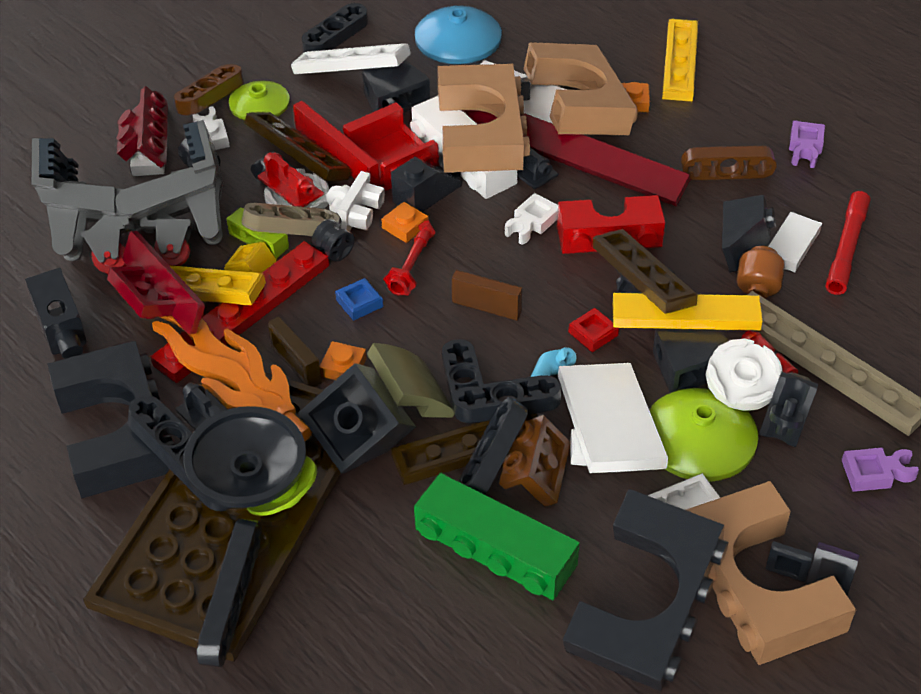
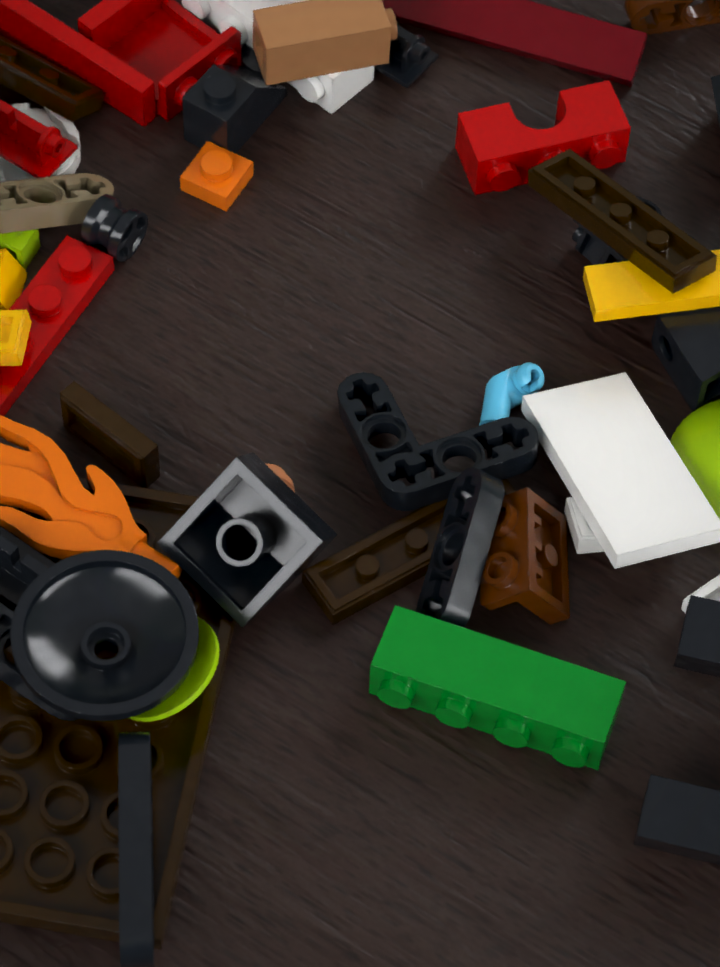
camera: 15 degrees left, 10 degrees up
(340, 358) = (187, 437): orange plate -> none
(351, 202) = (123, 154): white hips -> none
(359, 299) = (180, 323): blue tile -> none
(400, 280) = (241, 283): red piece -> none
(409, 380) = (306, 458): olive slope -> none
(486, 295) = (382, 289): reddish brown tile -> none
(532, 215) = (418, 137): white plate -> none
(593, 330) = (555, 322): red tile -> none

